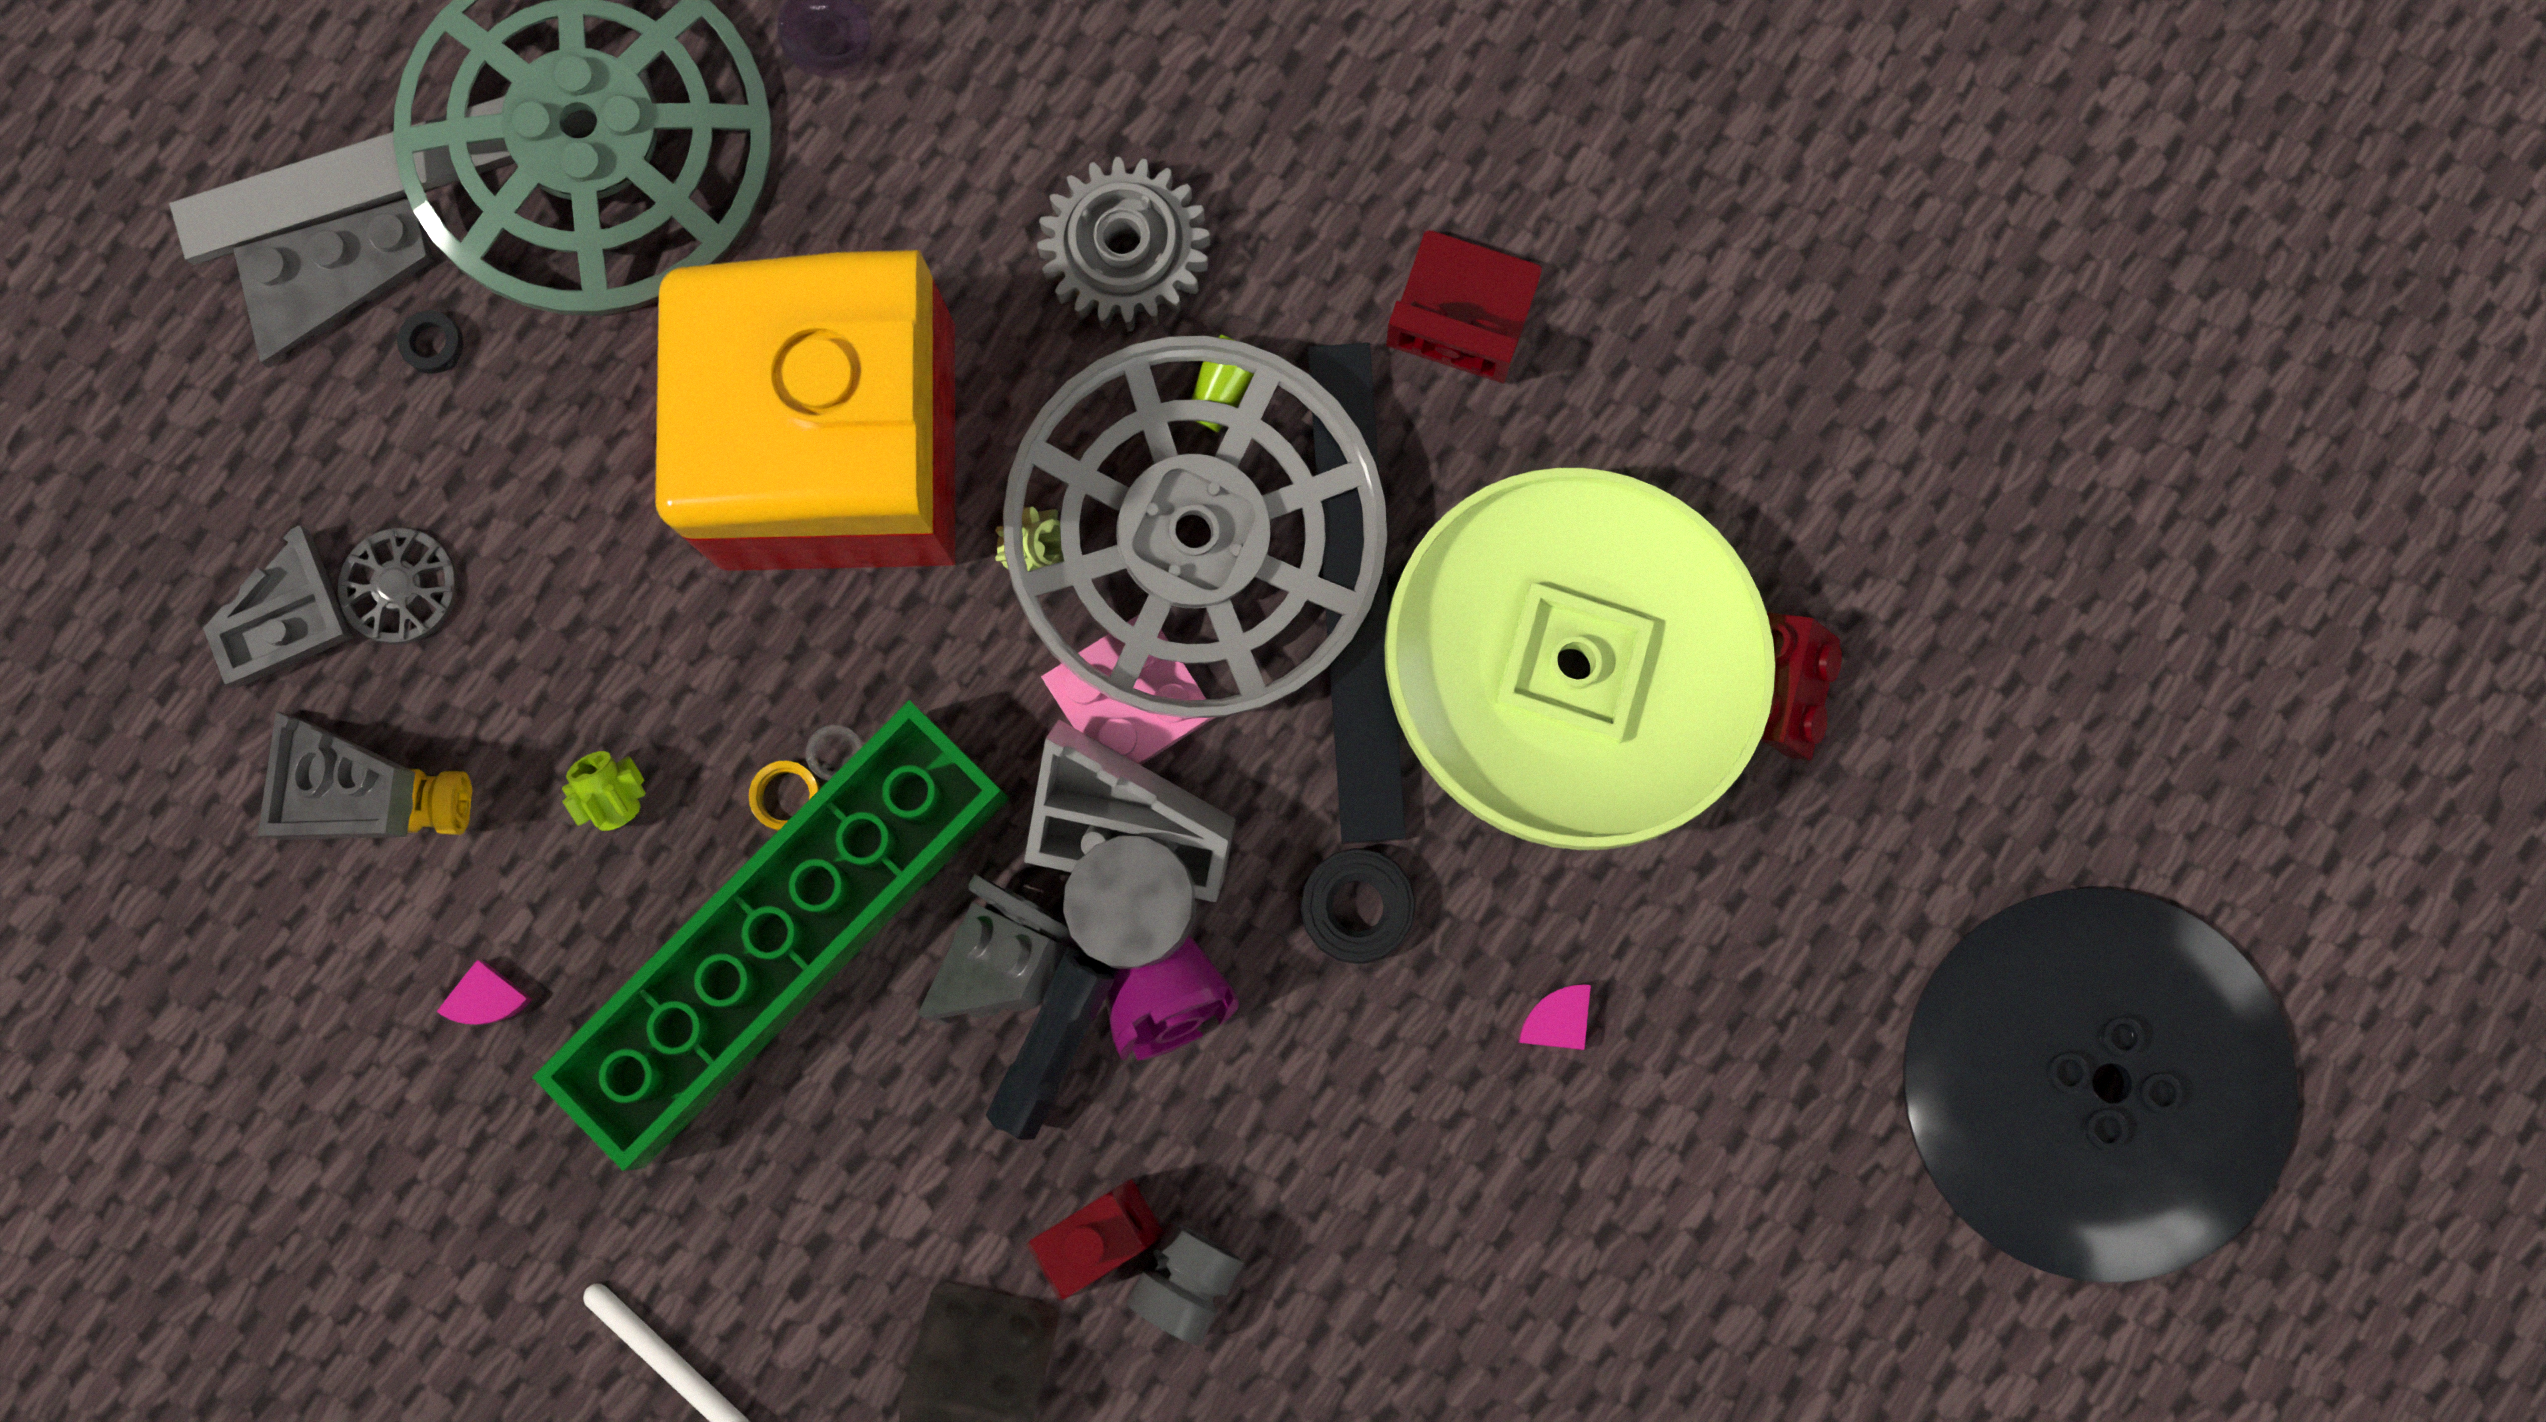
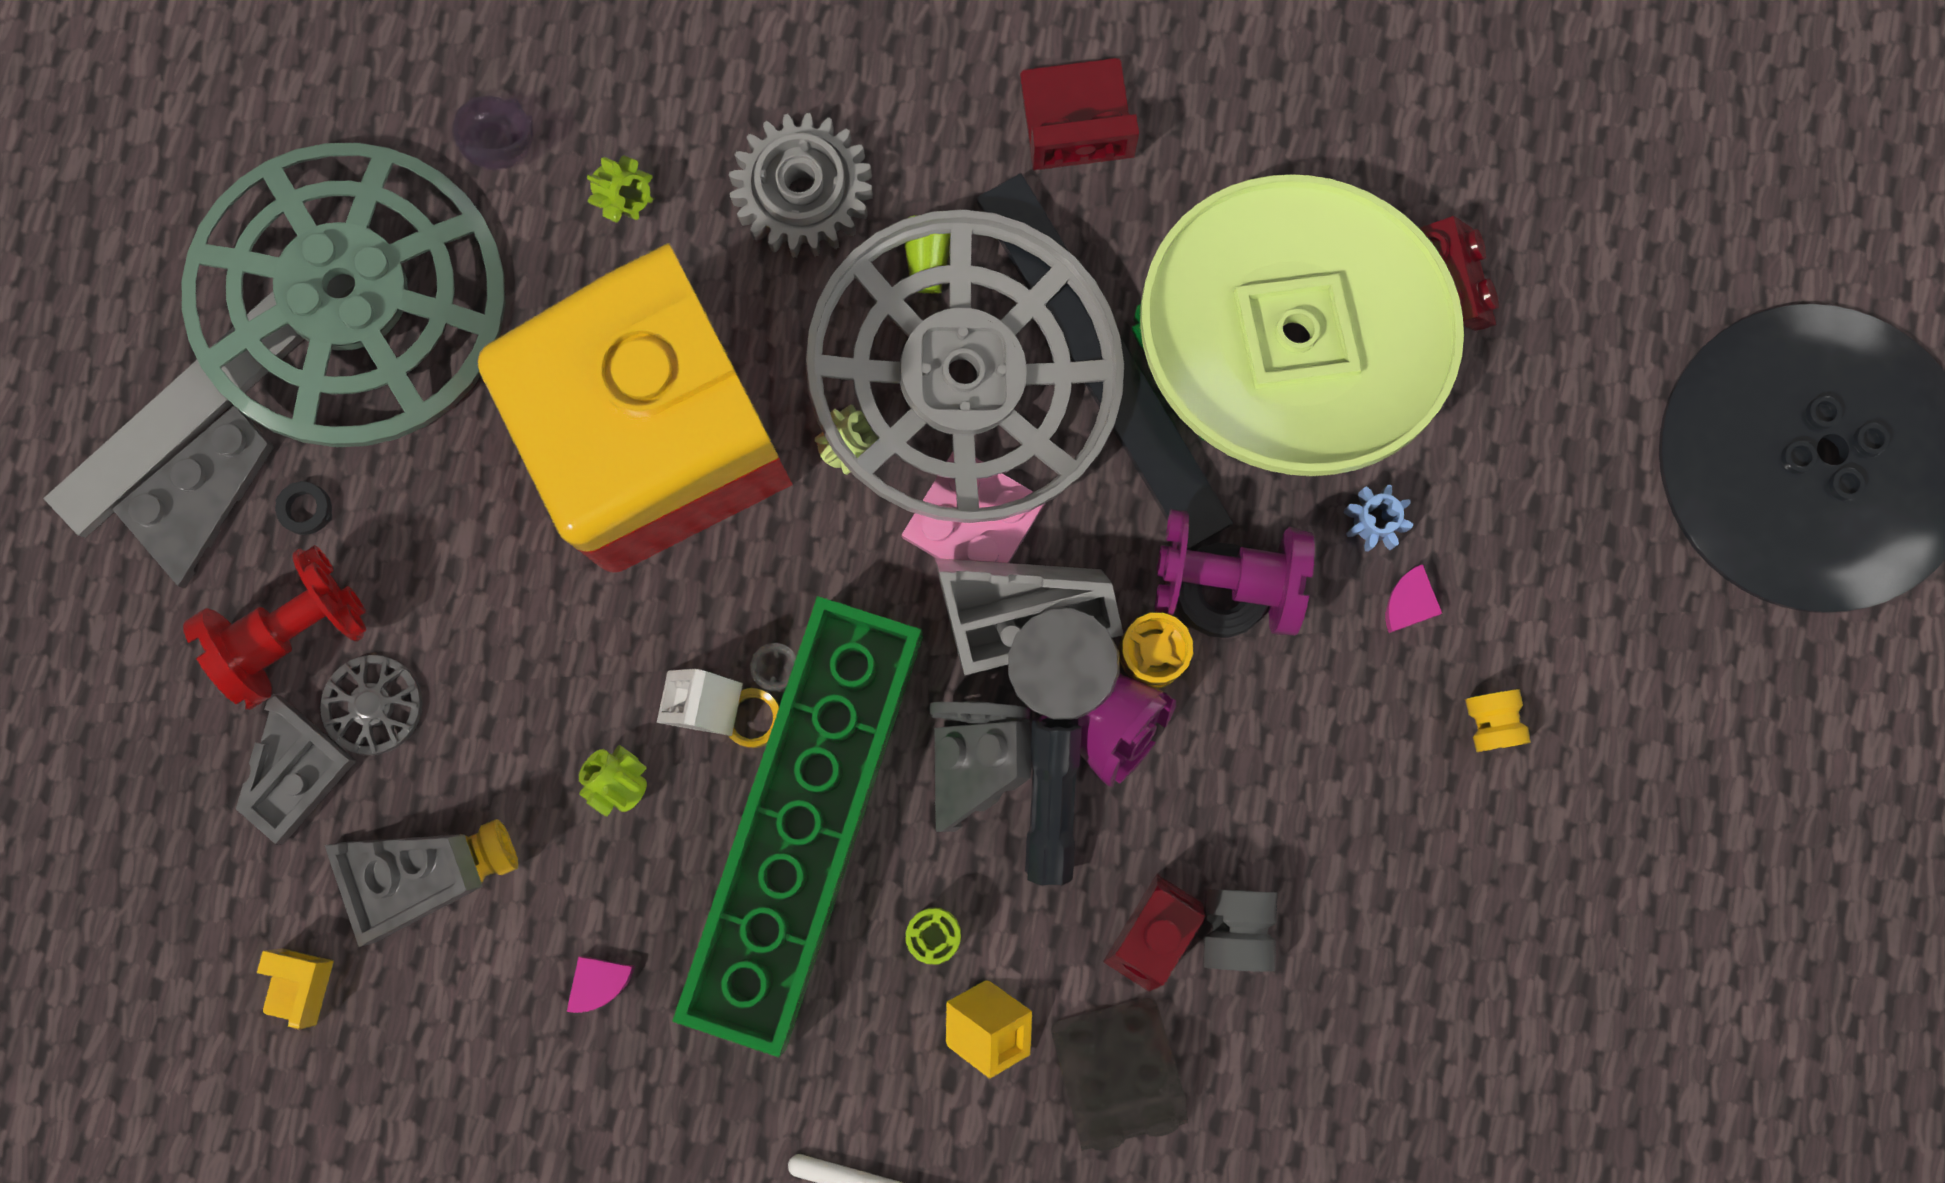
camera: 30 degrees left, 0 degrees up
(175, 844) = (295, 985): none -> yellow panel
(288, 464) = (242, 650): none -> red piece
(736, 753) = (699, 701): none -> white slope
(866, 1252) = (988, 1028): none -> yellow panel
(867, 1124) = (937, 928): none -> lime wheel
(923, 140) = (607, 184): none -> lime gear
(1244, 935) = (1155, 649): none -> yellow wheel
(1391, 908) = (1253, 575): none -> magenta piece
(1584, 912) = (1365, 523): none -> light blue gear
(1584, 1198) = (1498, 720): none -> yellow wheel

